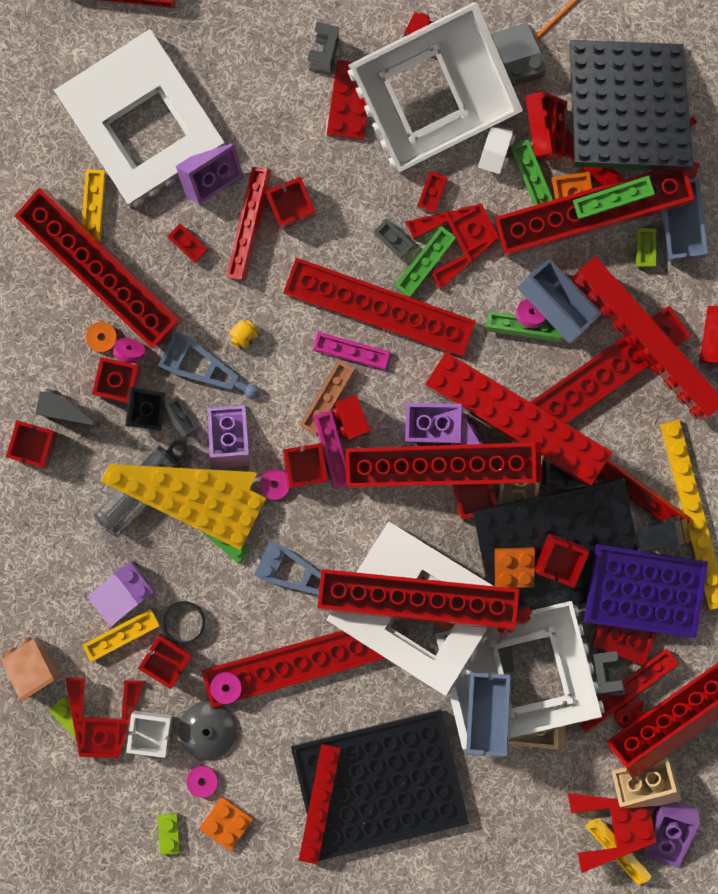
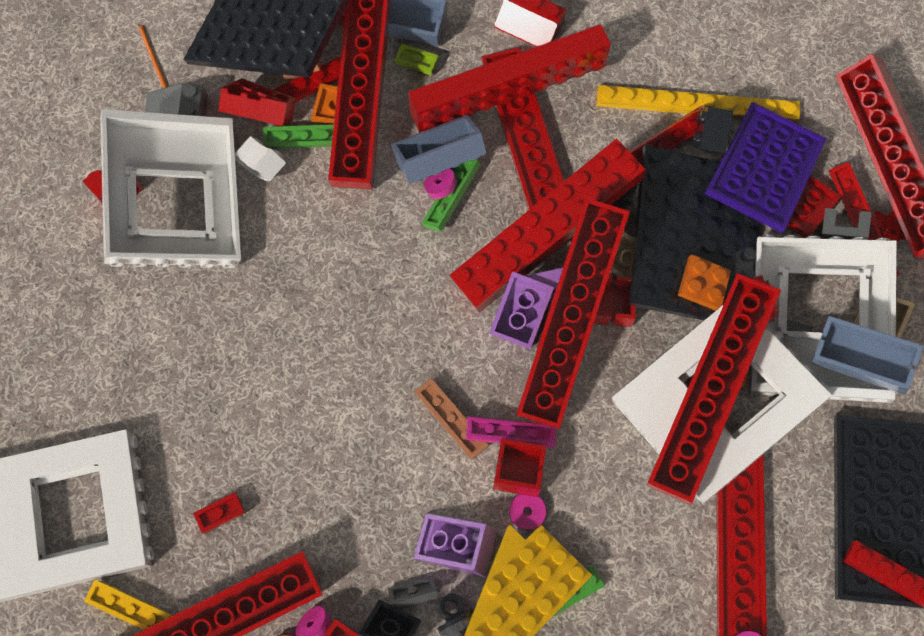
camera: 65 degrees left, 15 degrees down
(176, 353) = (339, 572): sand blue plate -> none
(209, 173) = (152, 458): medium lavender slope -> none
(243, 334) = (346, 485): yellow head -> none
(248, 223) = (227, 436): red plate -> none
(271, 561) = (616, 547): sand blue plate -> none
(291, 204) = (226, 382): red piece -> none
(329, 37) = (76, 288): dark grey panel -> none
(347, 110) = (146, 288): red plate -> none
(351, 350) = (409, 376): dark pink tile -> none
(352, 418) = (485, 397): red brick -> none
(379, 307) = (372, 332): red plate -> none
(393, 238) = (308, 291): dark grey plate -> none
(425, 262) = (345, 268): bright green plate -> none
(432, 192) = (276, 236): red plate -> none
(472, 232) = (333, 211): red wing -> none
(563, 559) = (711, 228): red piece -> none
(613, 197) = (357, 56): bright green plate -> none

